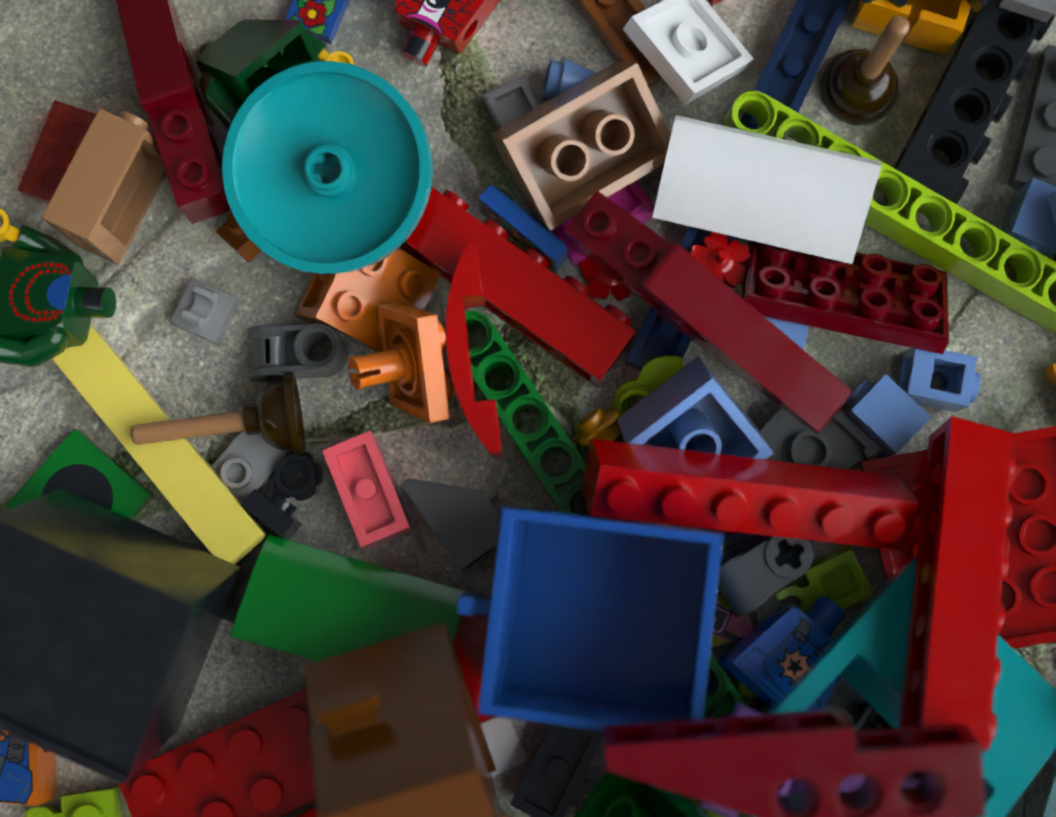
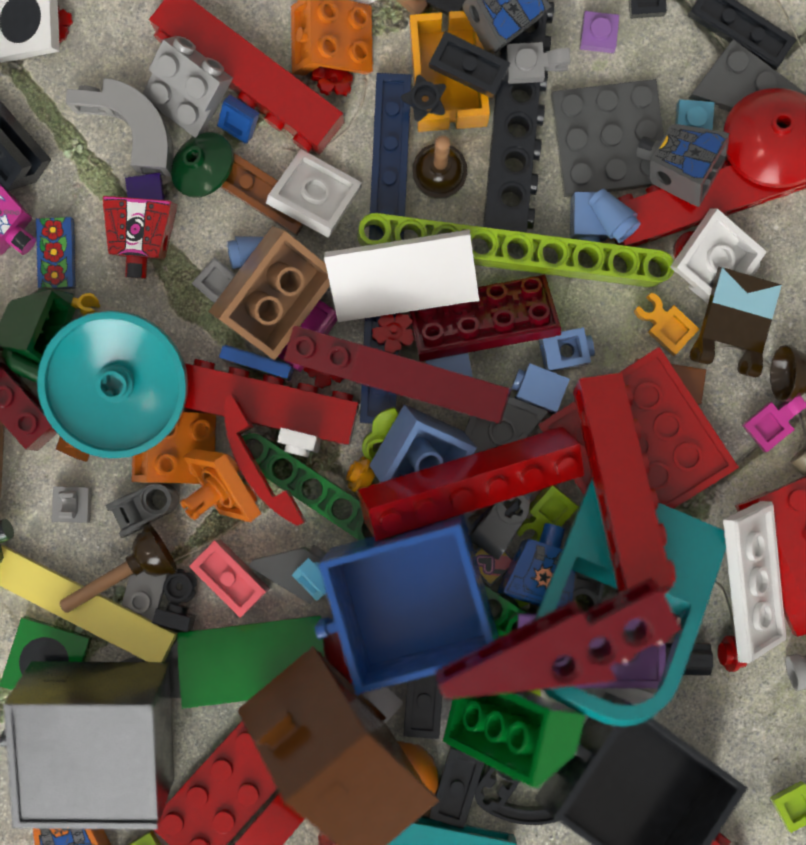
camera: 20 degrees left, 5 degrees up
(479, 534) = (310, 579): none -> medium azure plate
(537, 349) = (298, 443): none -> white plate

